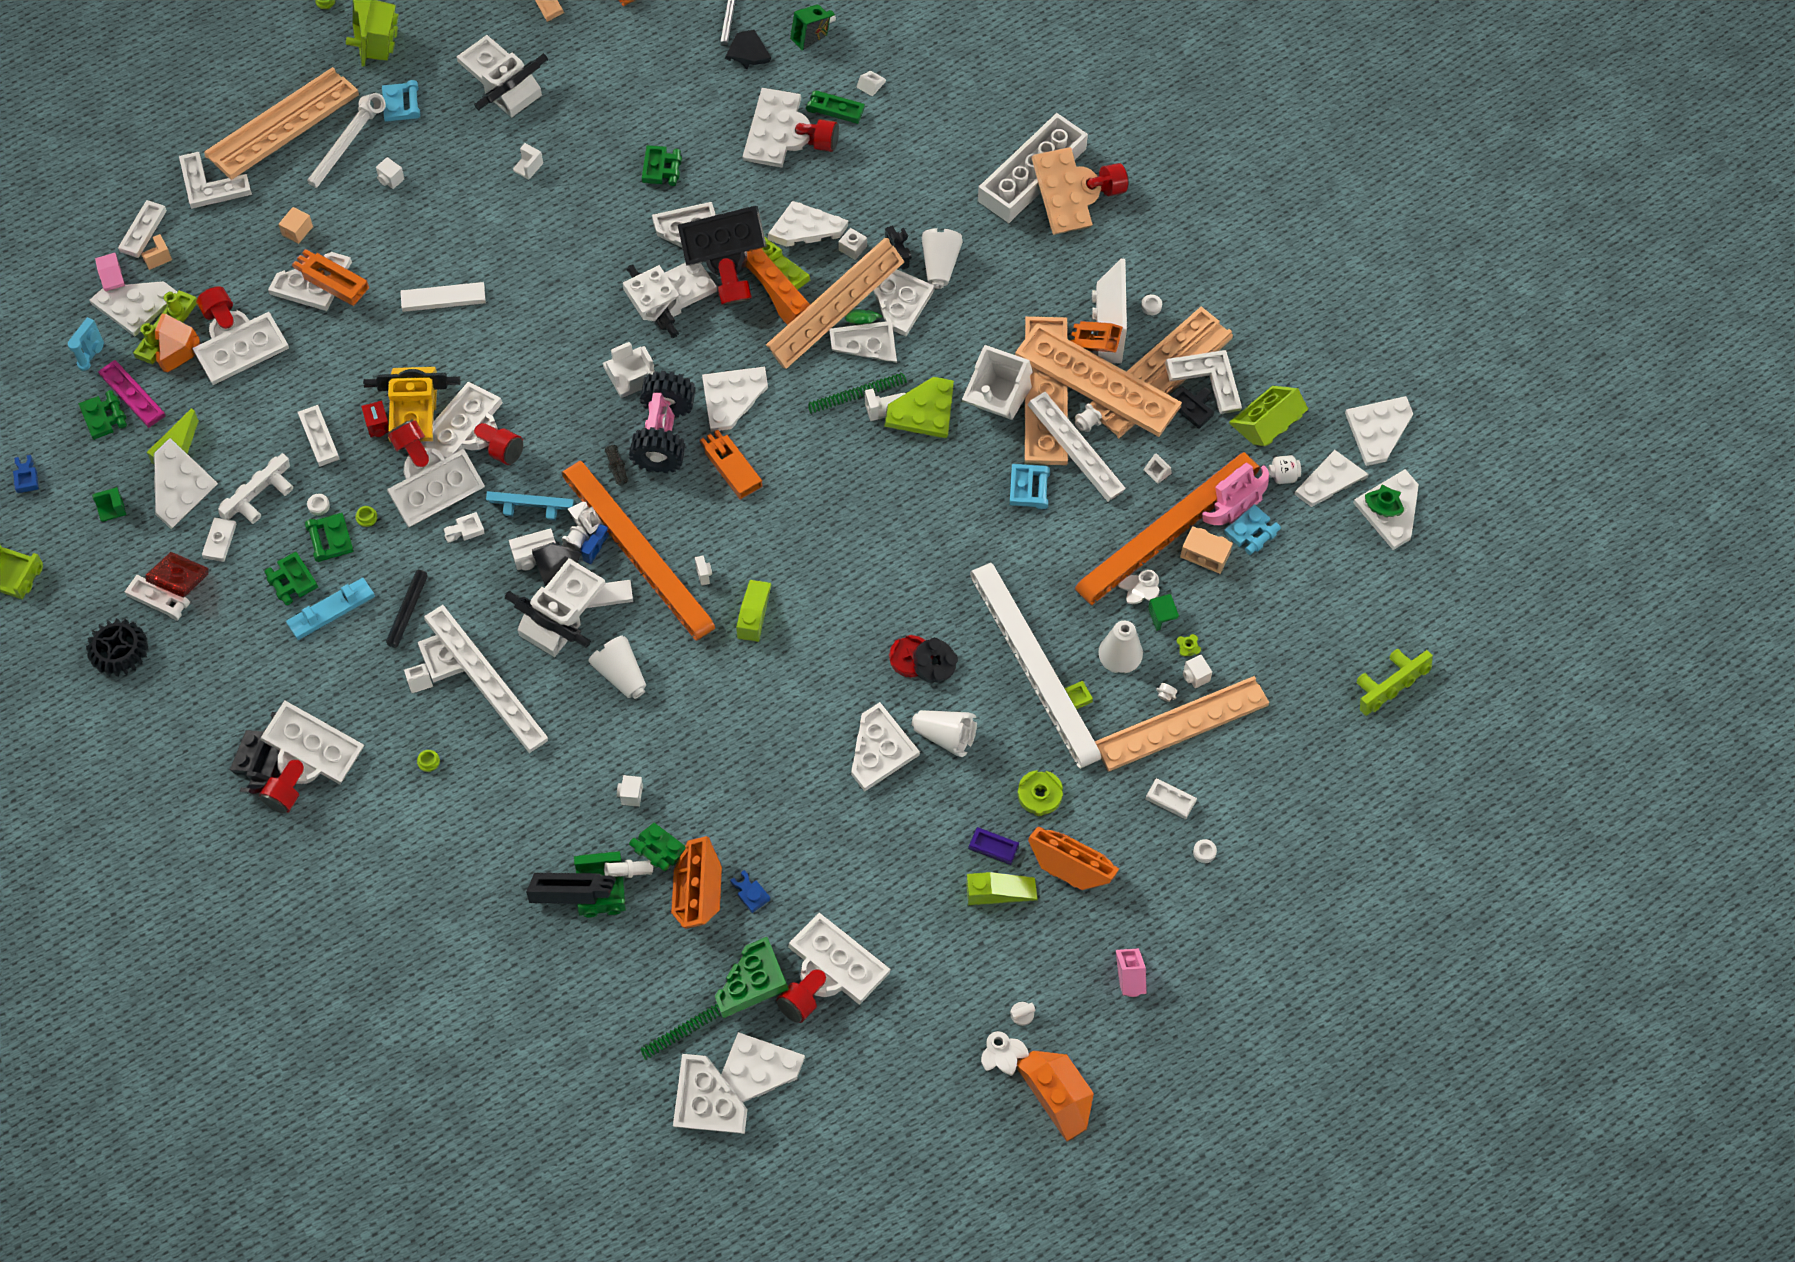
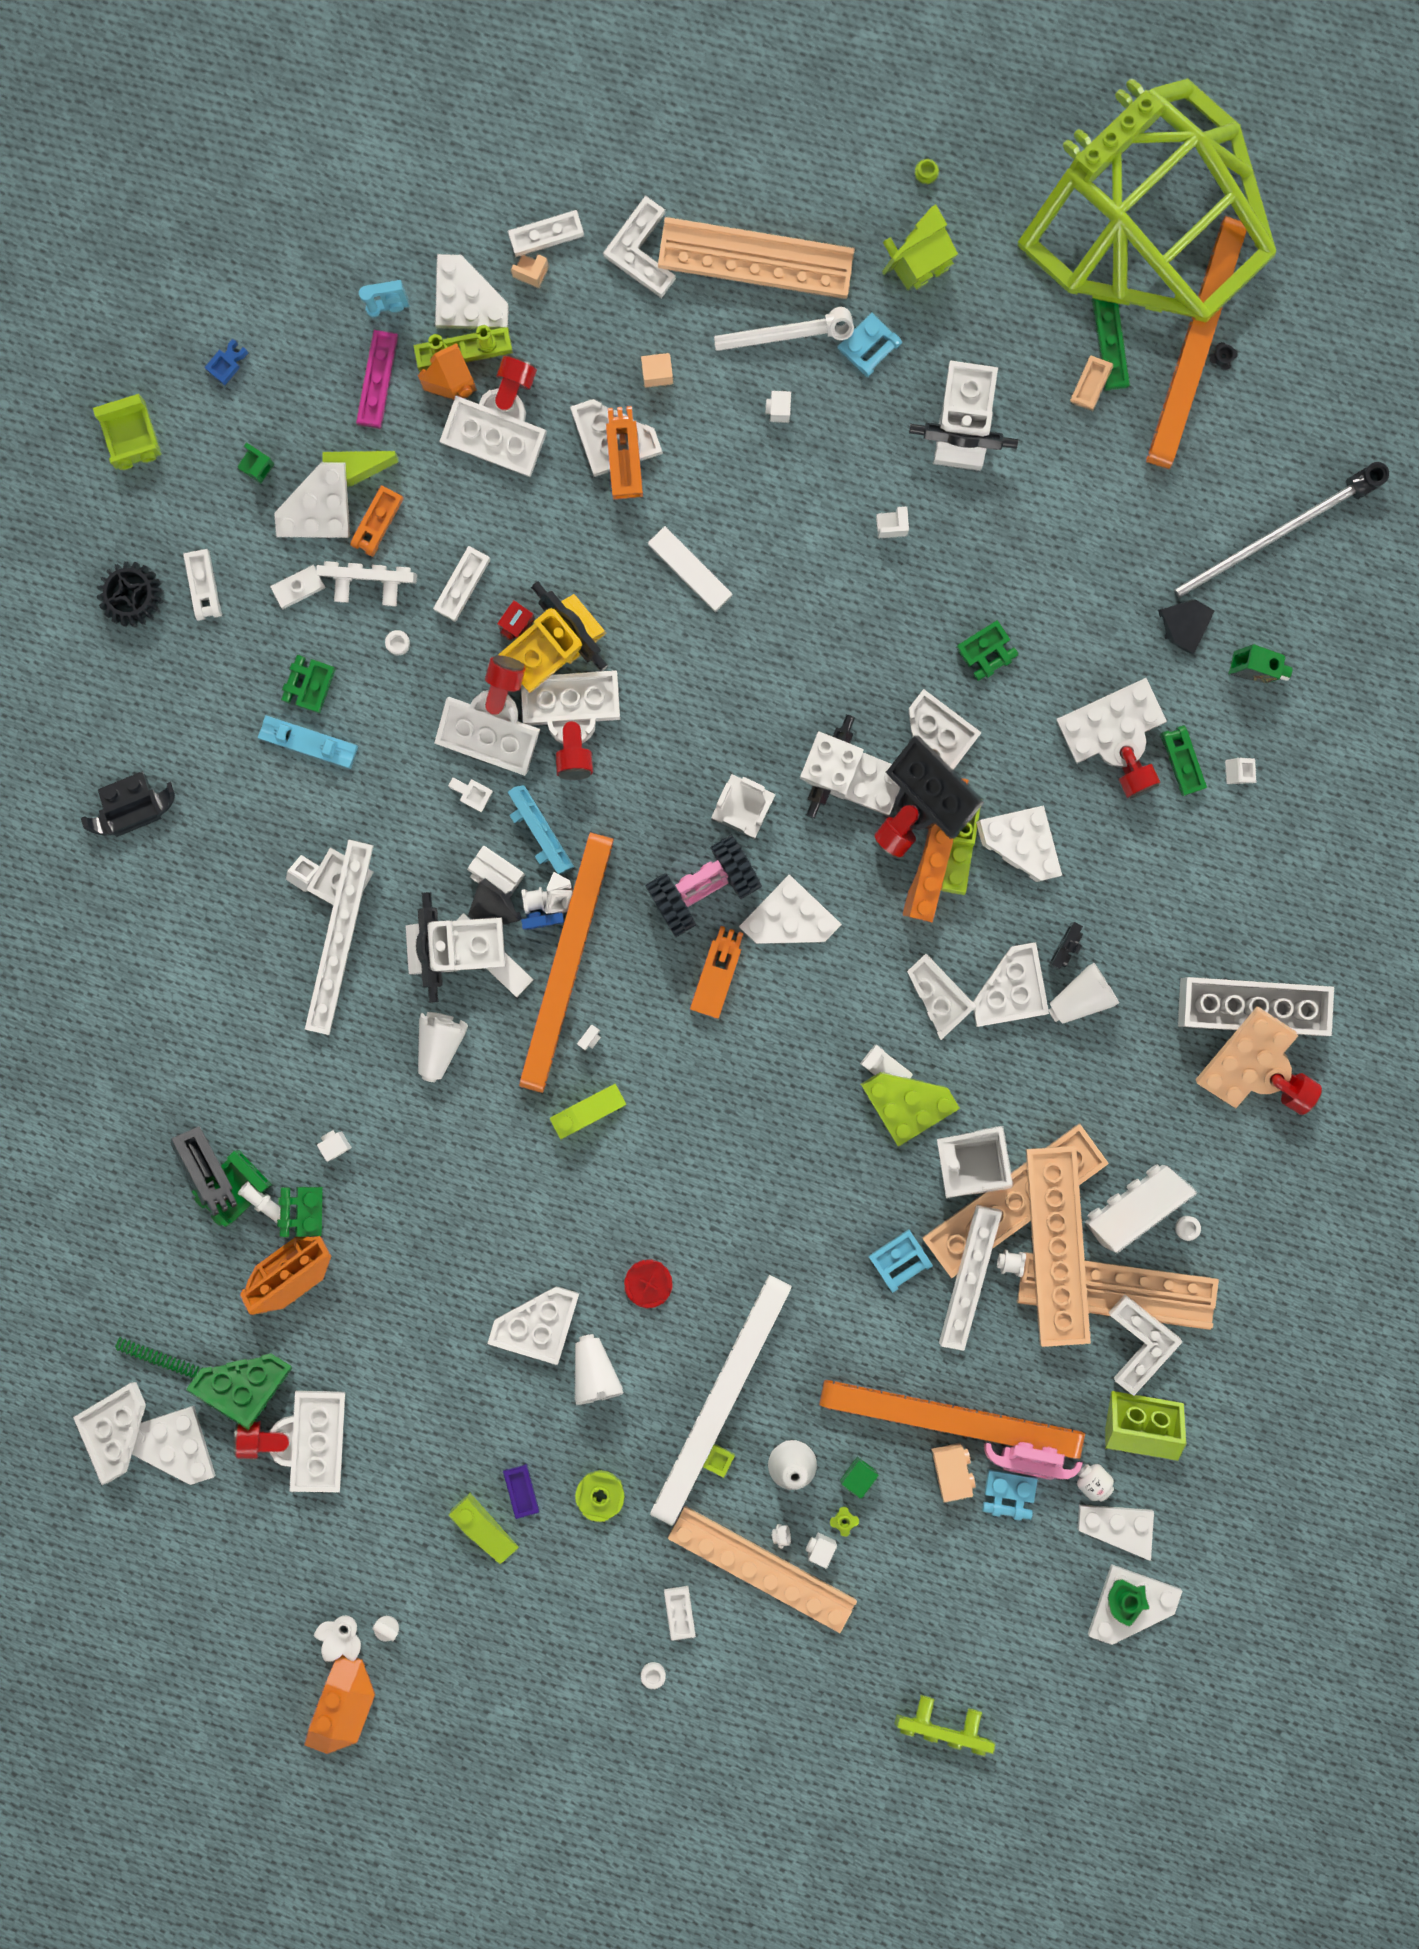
camera: 50 degrees right, 25 degrees up
(96, 417) = (330, 369): green plate -> none
(109, 272) = (476, 245): bright pink slope -> none
(177, 574) = (232, 584): clear red plate -> none
(224, 457) = (377, 520): none -> orange plate
(306, 751) = (156, 843): white plate -> none
(336, 534) = (379, 686): green plate -> none
(366, 516) = (417, 695): lime plate -> none
(406, 608) = (358, 808): black axle -> none
(428, 760) = (233, 949): lime plate -> none
(616, 465) = (636, 873): clear smoke axle -> none
(751, 894) = (322, 1320): blue plate -> none
(835, 303) = (955, 940): light nougat plate -> none
(852, 243) = (1031, 904): white plate -> none
(856, 390) = (879, 1029): green piece -> none
(861, 316) = (962, 973): green animal -> none
(946, 658) = (655, 1324): black plate -> none
(1071, 859) = (555, 1575): orange wedge -> none
(1107, 337) = (1099, 1231): orange hinge -> none
(1131, 972) = (490, 1694): bright pink slope -> none
(1141, 587) = (867, 1439): white plate -> none
(1157, 469) = (1007, 1363): white slope -> none
(1194, 407) = (1101, 1348): black plate -> none
(1379, 427) = (1211, 1535): white plate -> none

